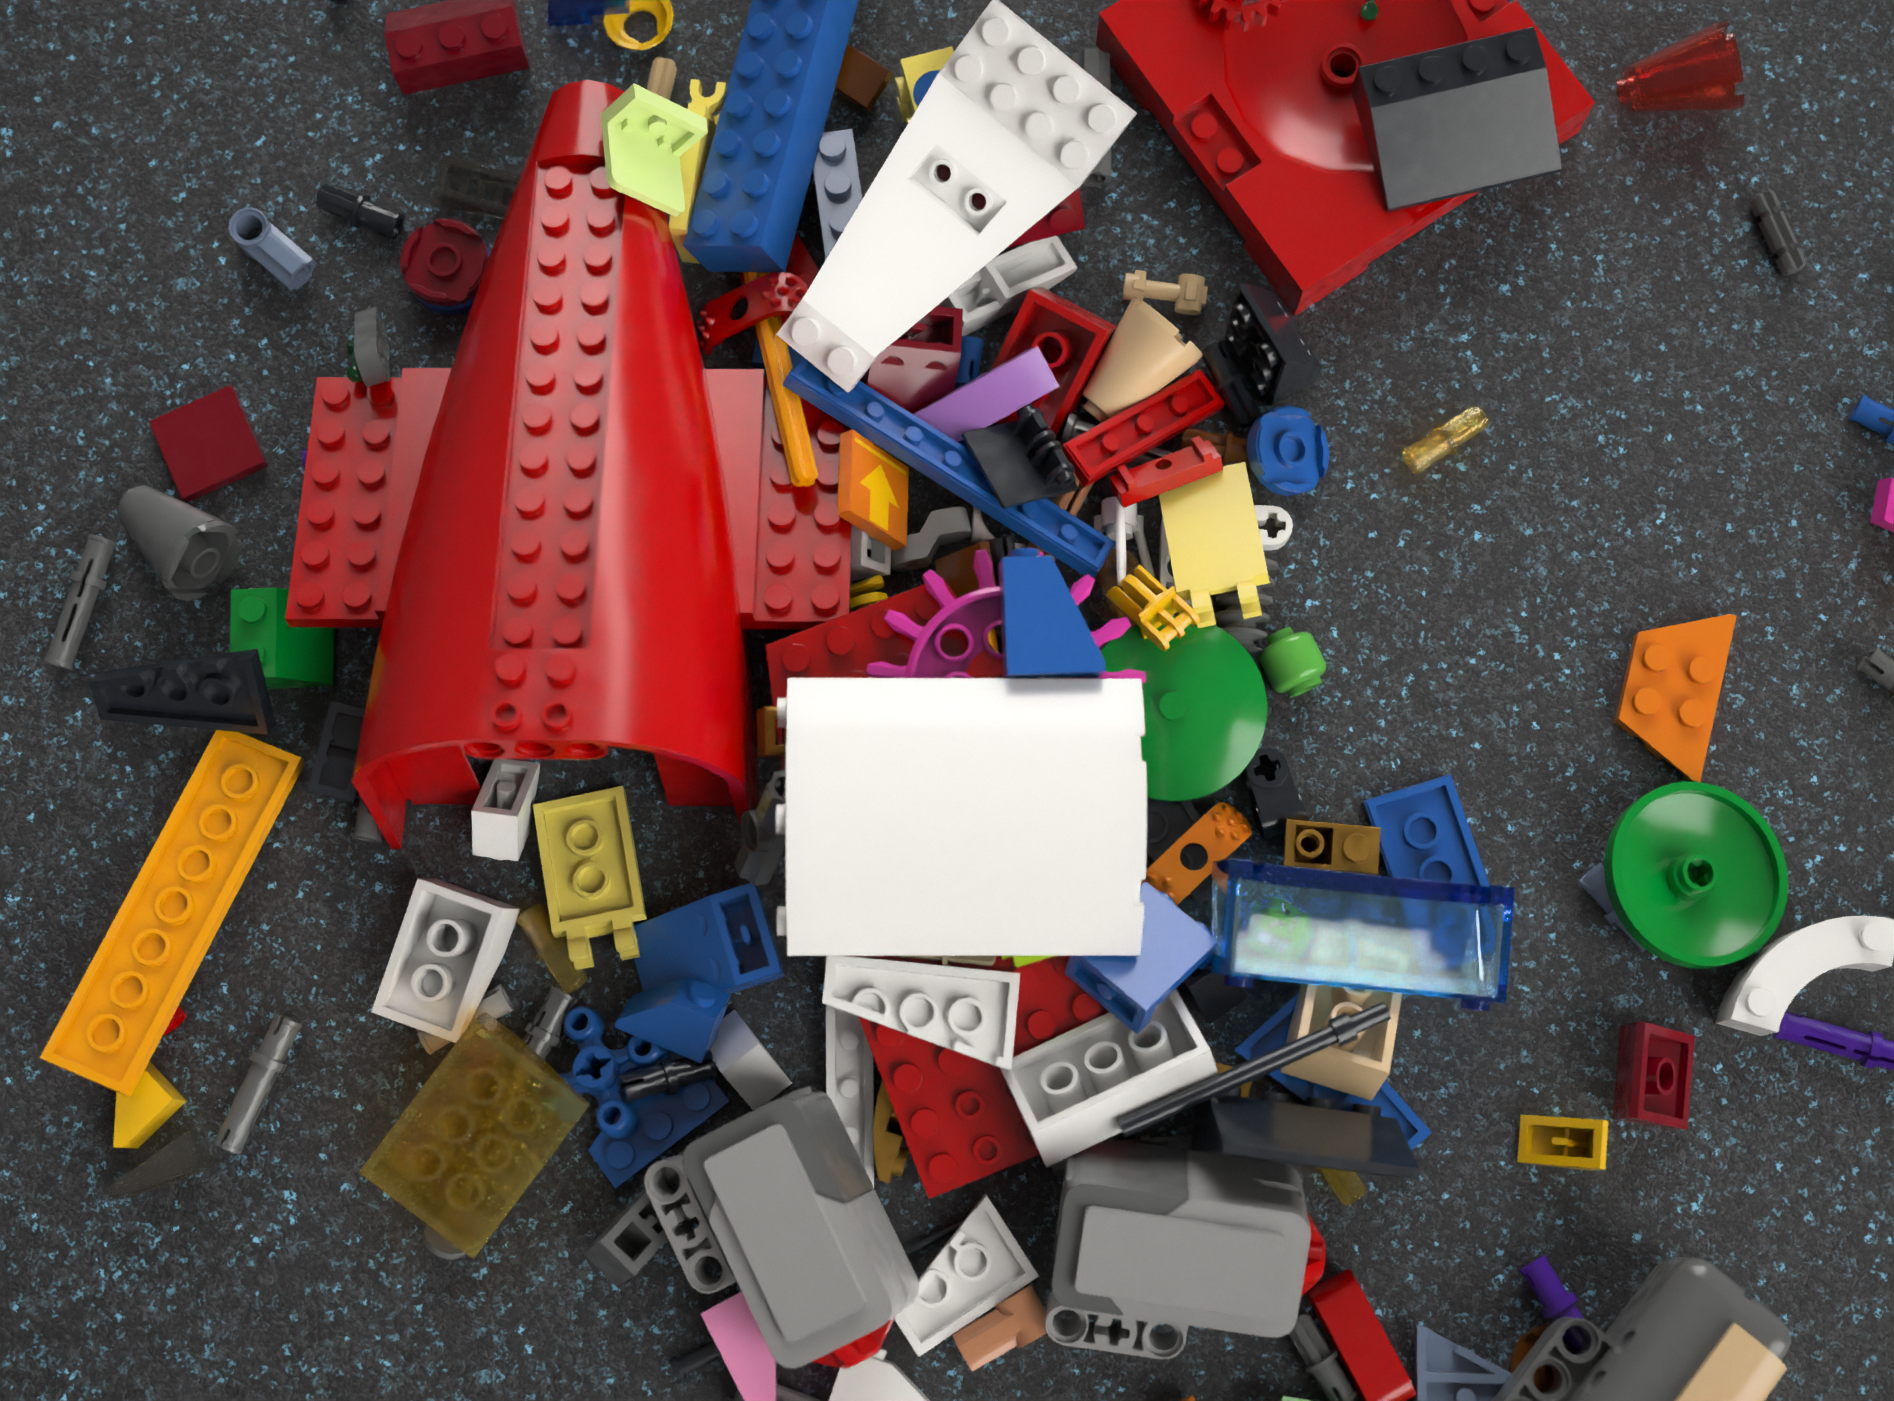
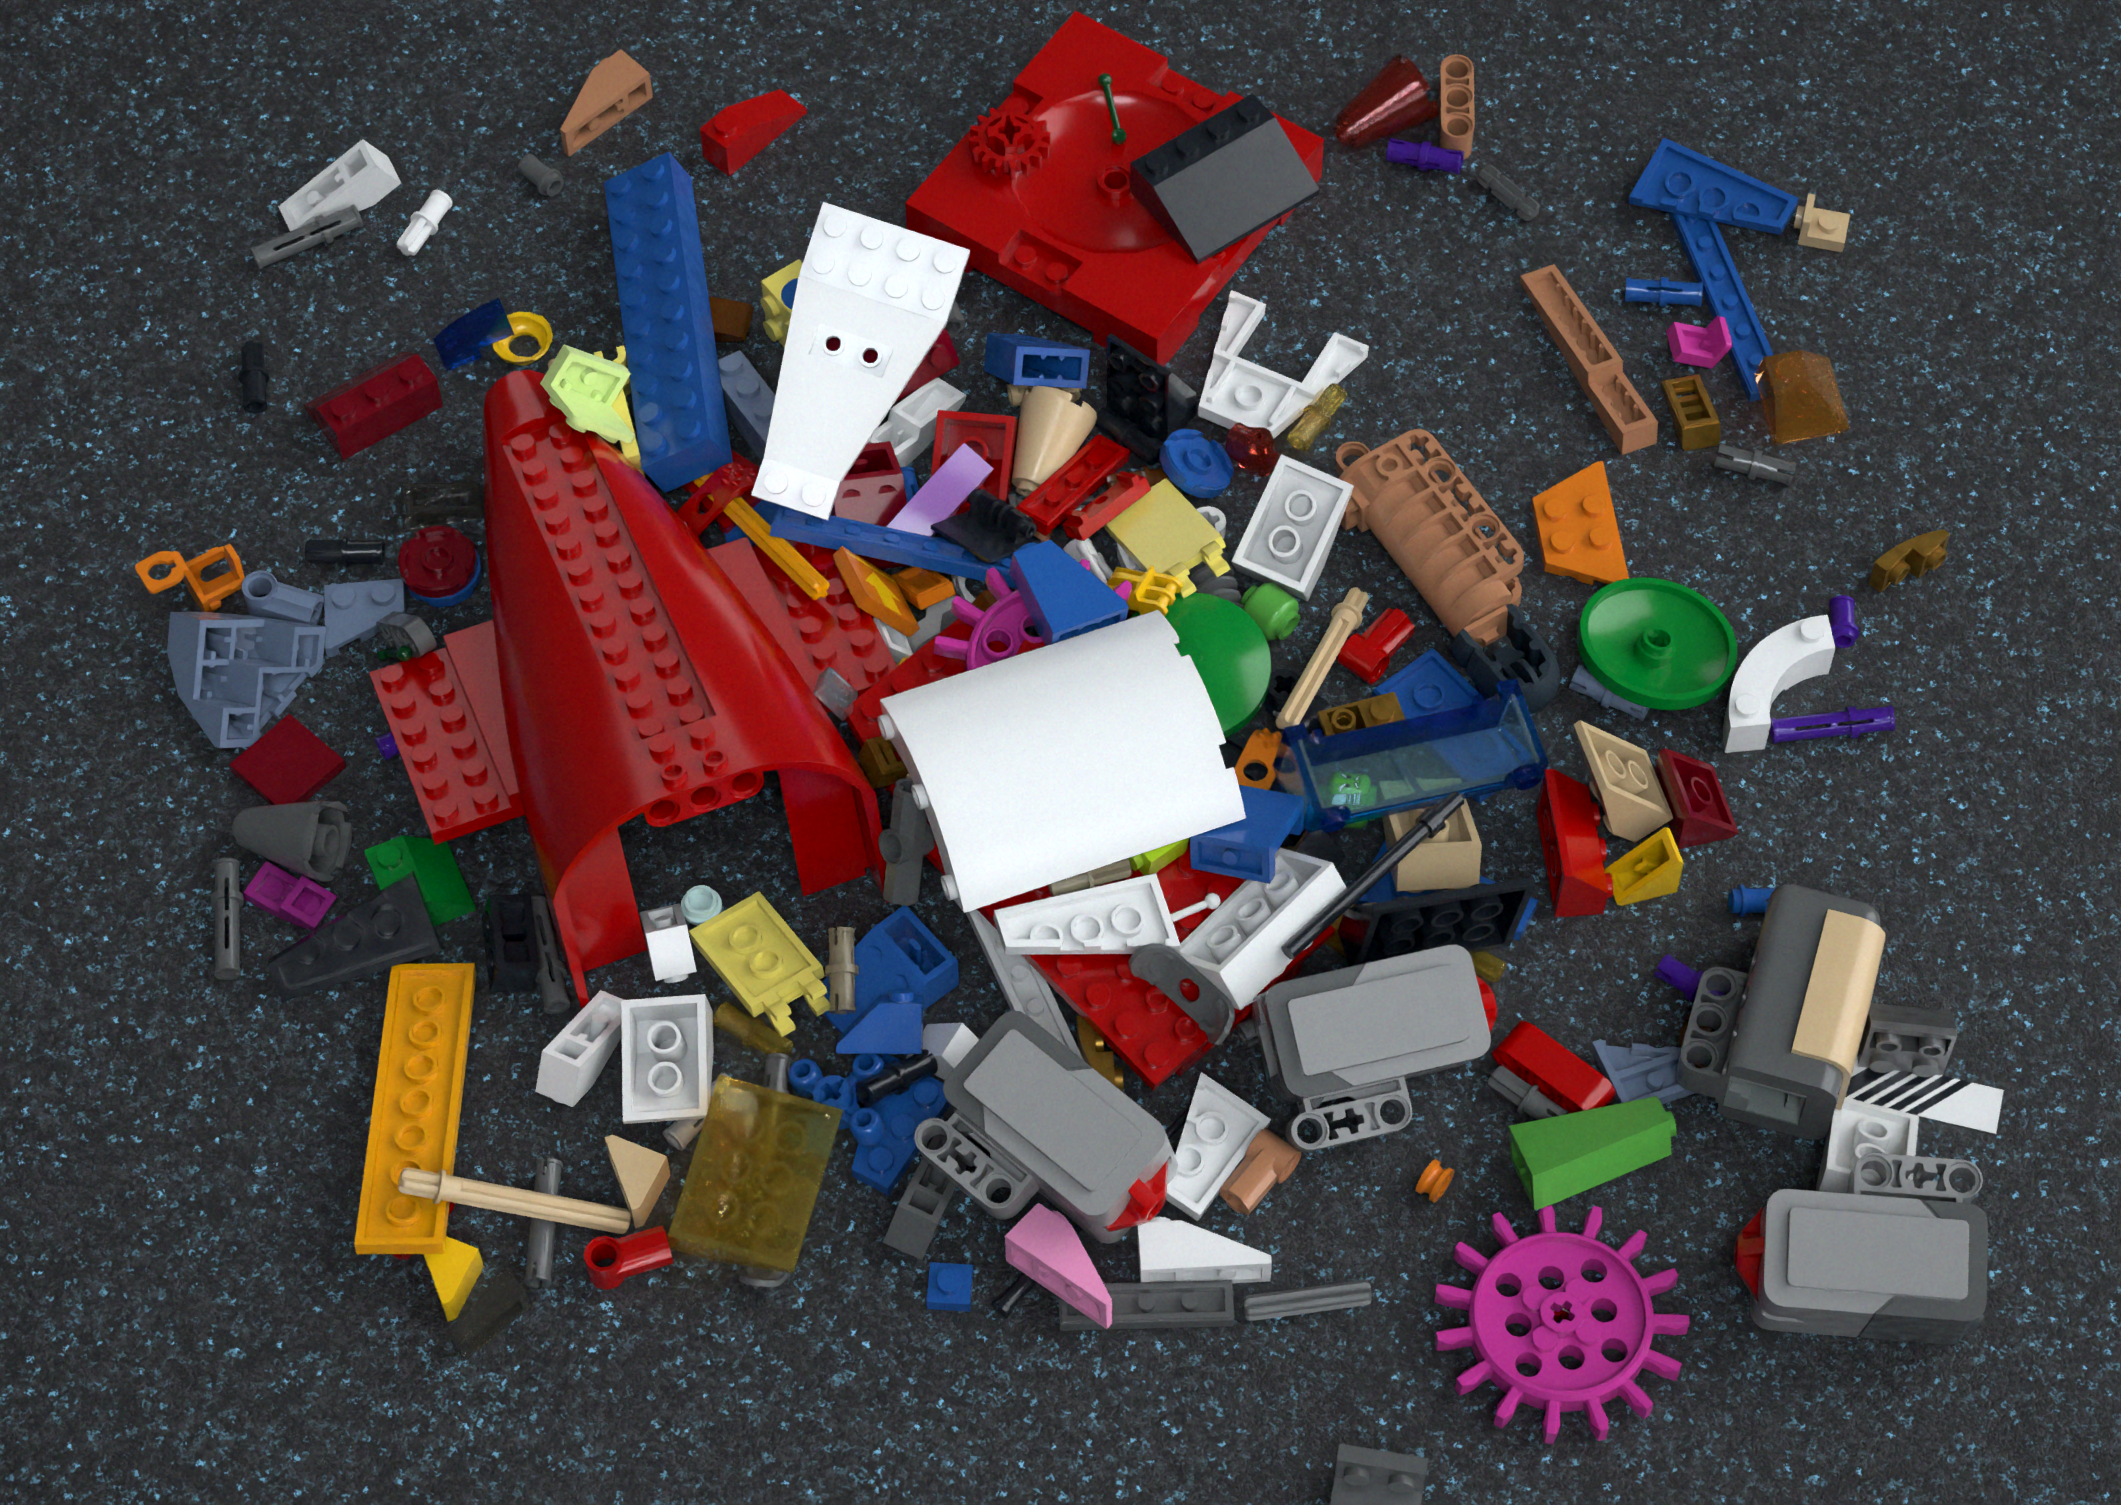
camera: 25 degrees left, 20 degrees down
(150, 602) = (288, 898): none -> magenta slope
(187, 188) = (206, 594): none -> orange piece
(197, 315) = (240, 669): none -> sand blue brick
(220, 1062) = (513, 1200): none -> tan axle
(327, 1158) = (631, 1254): none -> red piece
(347, 284) = (356, 607): none -> sand blue wing
(368, 1072) = (639, 1175): none -> tan slope
(372, 900) = (580, 1050): none -> white slope
(558, 778) = (700, 904): none -> light aqua plate
(635, 1323) = (950, 1286): none -> blue plate
(660, 928) = (842, 970): none -> dark tan pin
(764, 622) = (835, 693): none -> clear light blue tile
(931, 501) = (923, 586): none -> orange tile
(1016, 1146) = (1166, 969): none -> dark grey piece
(1070, 1020) = (1211, 901): none -> white hinge
(1161, 265) = (1036, 361): none -> blue slope
(1354, 583) = (1293, 527): none -> white slope
(1360, 460) = (1252, 449): none -> clear red piece
(1370, 704) = (1345, 618): none -> tan axle
(1380, 754) = (1371, 652): none -> red piece
(1384, 388) = (1255, 395): none -> white wing
(1495, 1086) = (1572, 847): none -> red slope
(1505, 684) = (1450, 558): none -> nougat piece
(1584, 1041) = (1623, 783): none -> tan slope
(1668, 1223) = (1748, 900): none -> blue pin
(1704, 152) = (1425, 156): none -> dark purple pin
(1778, 90) = (1456, 104): none -> nougat beam
(1779, 479) = (1591, 360): none -> nougat slope
(1858, 616) = (1692, 414): none -> pearl gold slope

